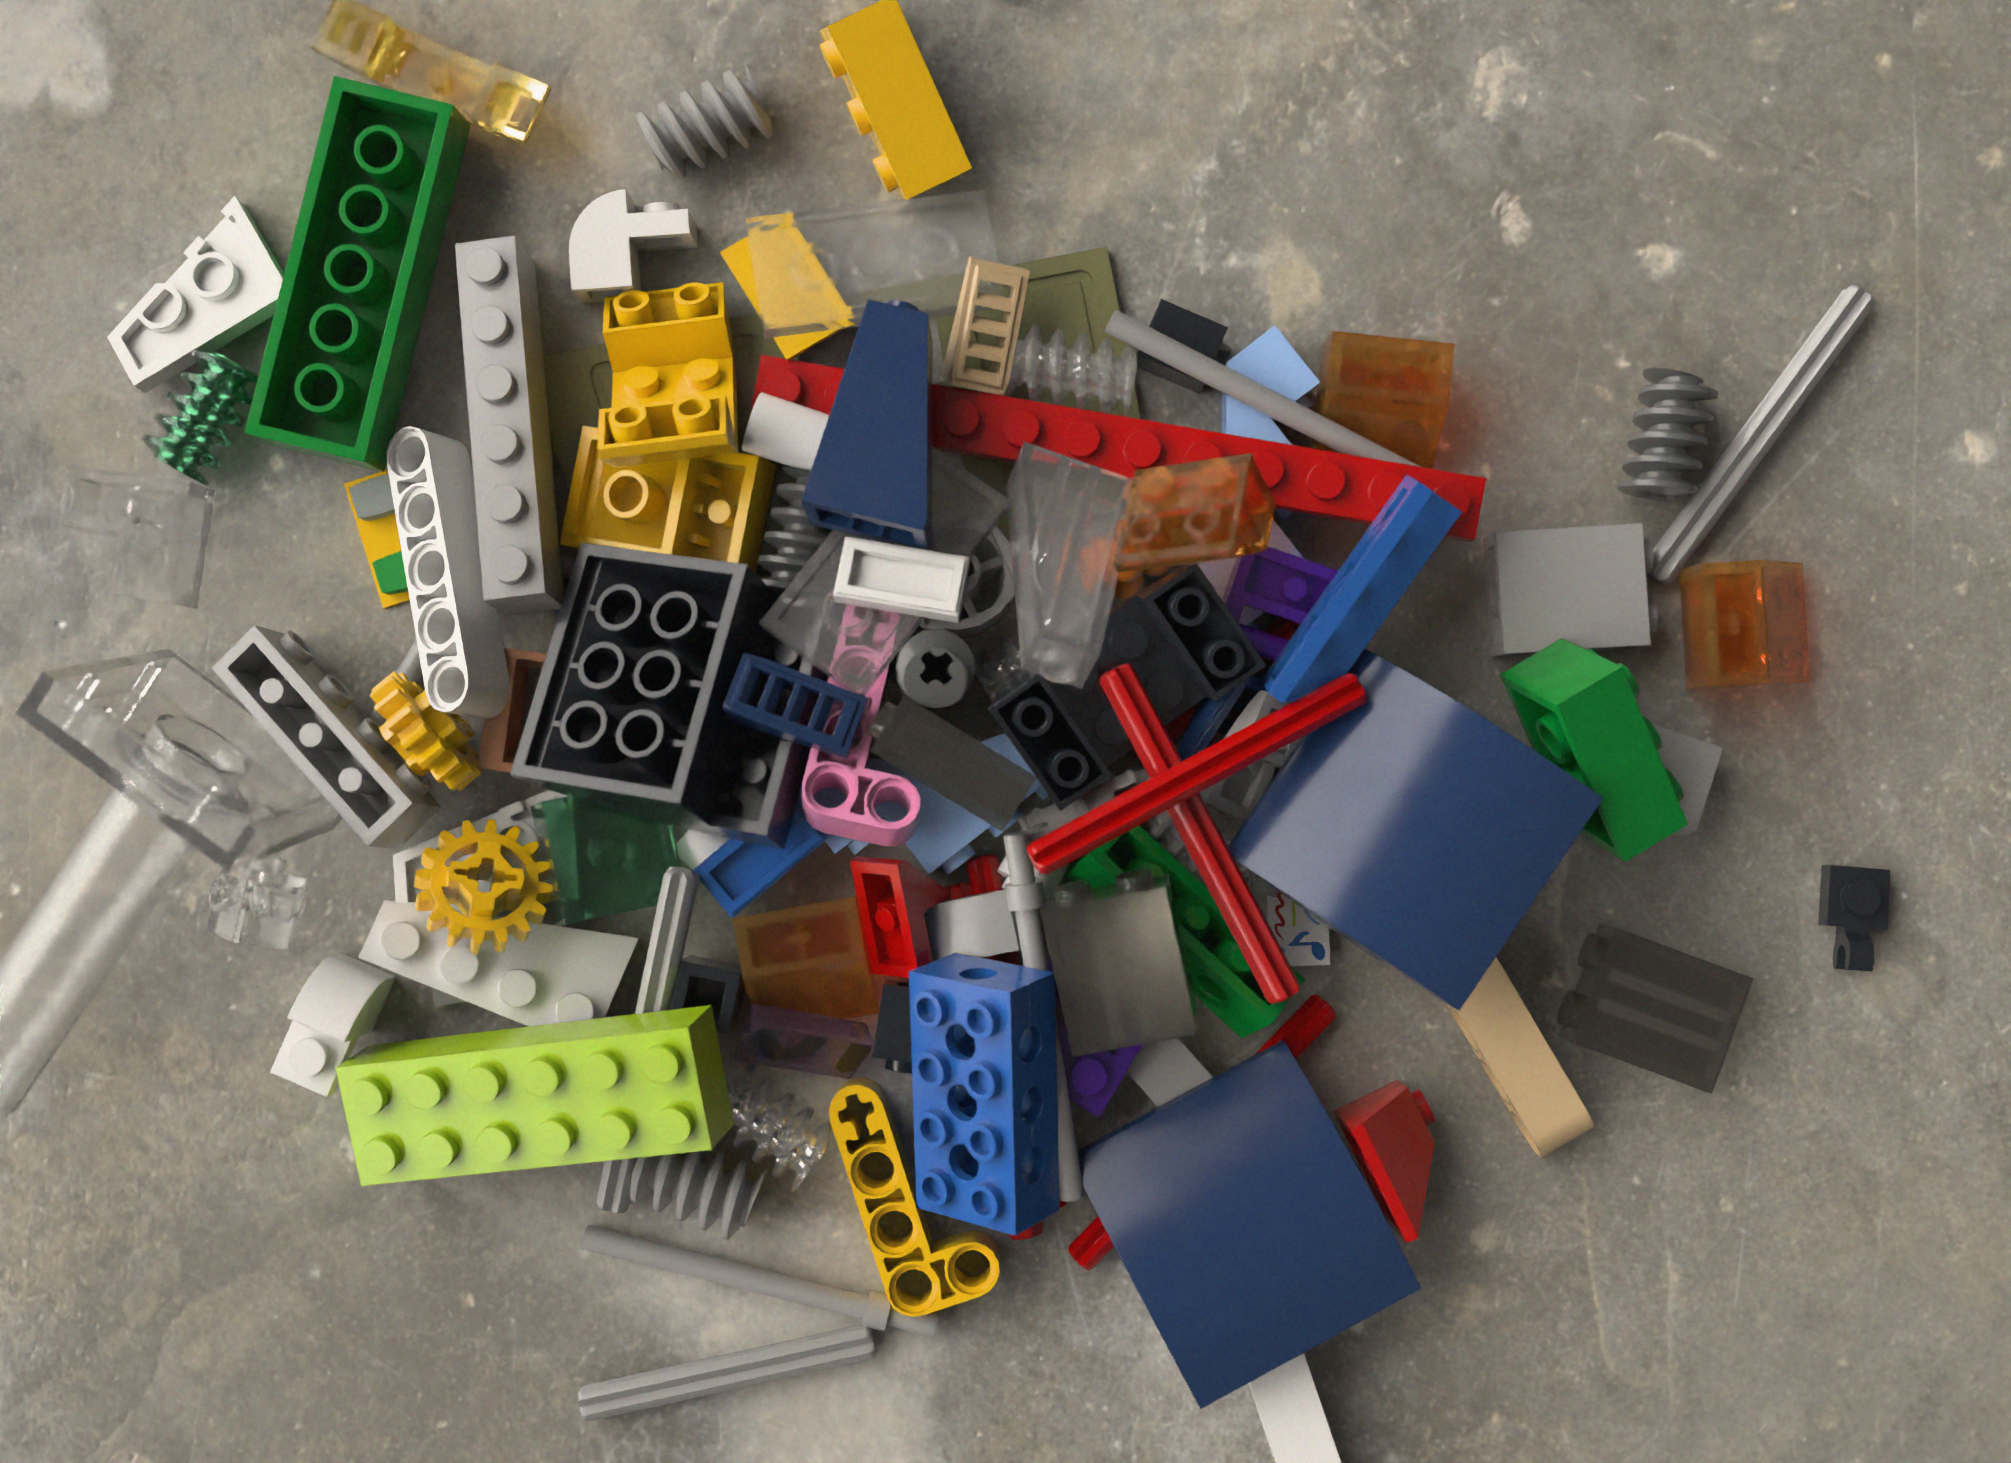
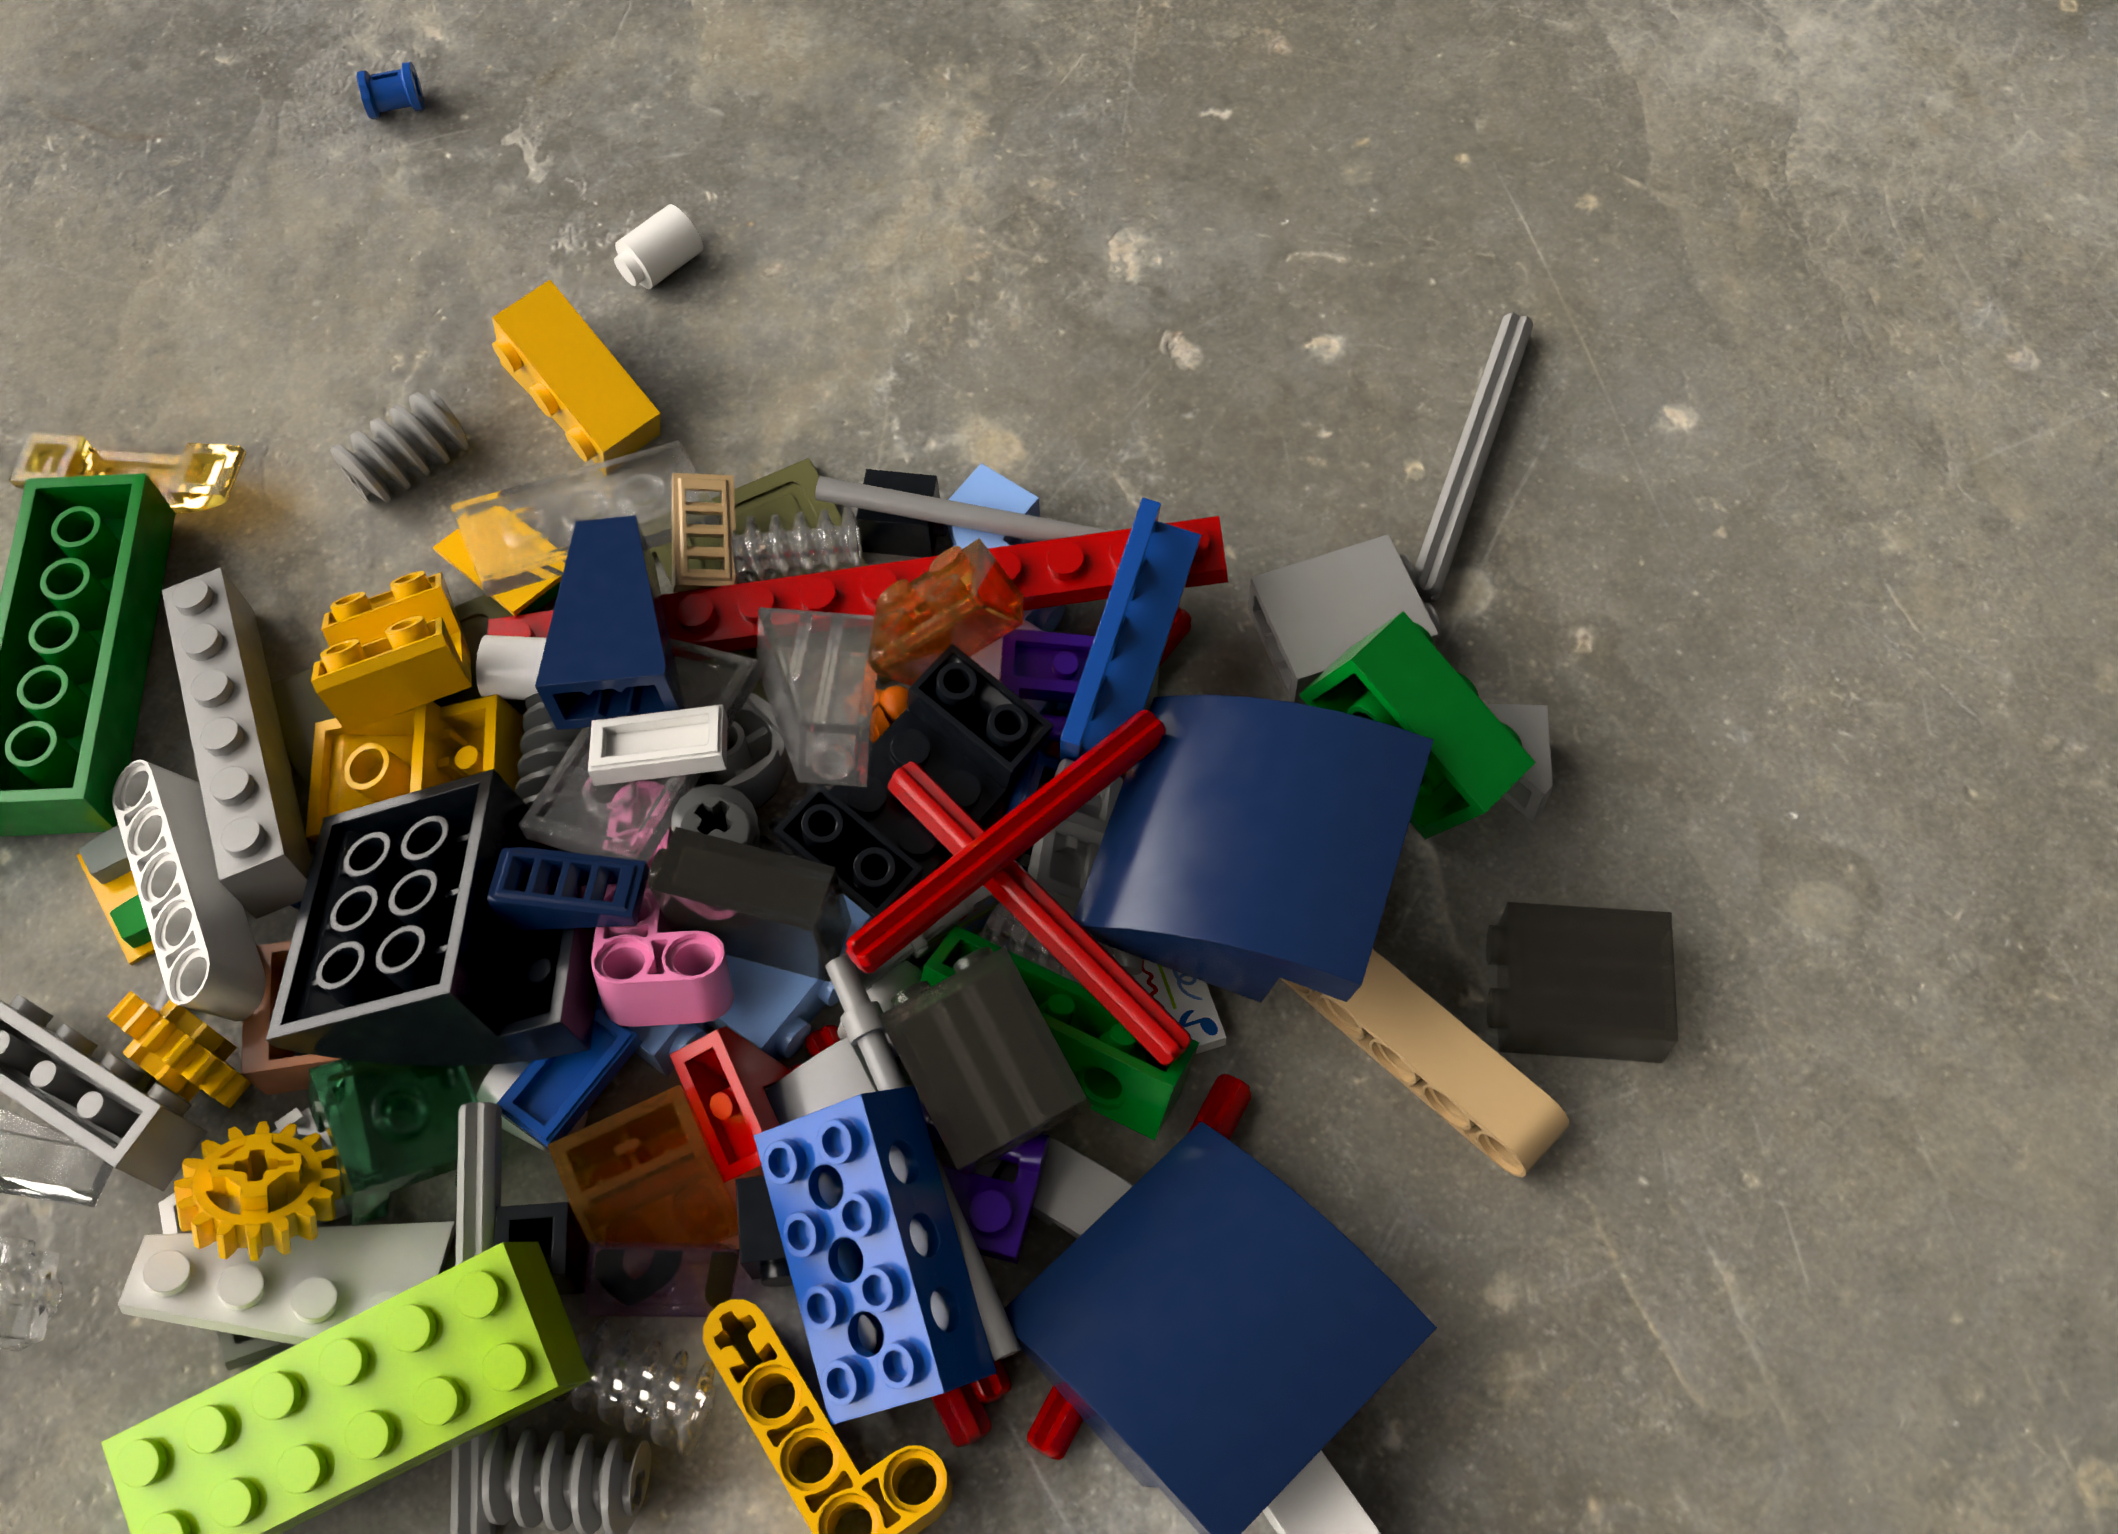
camera: 10 degrees left, 25 degrees down
(328, 1017) = (93, 1394): white brick -> none
(611, 235) = (326, 559): white brick -> none
(1386, 391) = (1100, 478): clear orange slope -> none
(1393, 1151) = (1359, 1194): red slope -> none
(1667, 435) = (1386, 467): dark grey piece -> none
(1744, 624) = (1522, 601): clear orange slope -> none
(1854, 903) = (1749, 831): black plate -> none

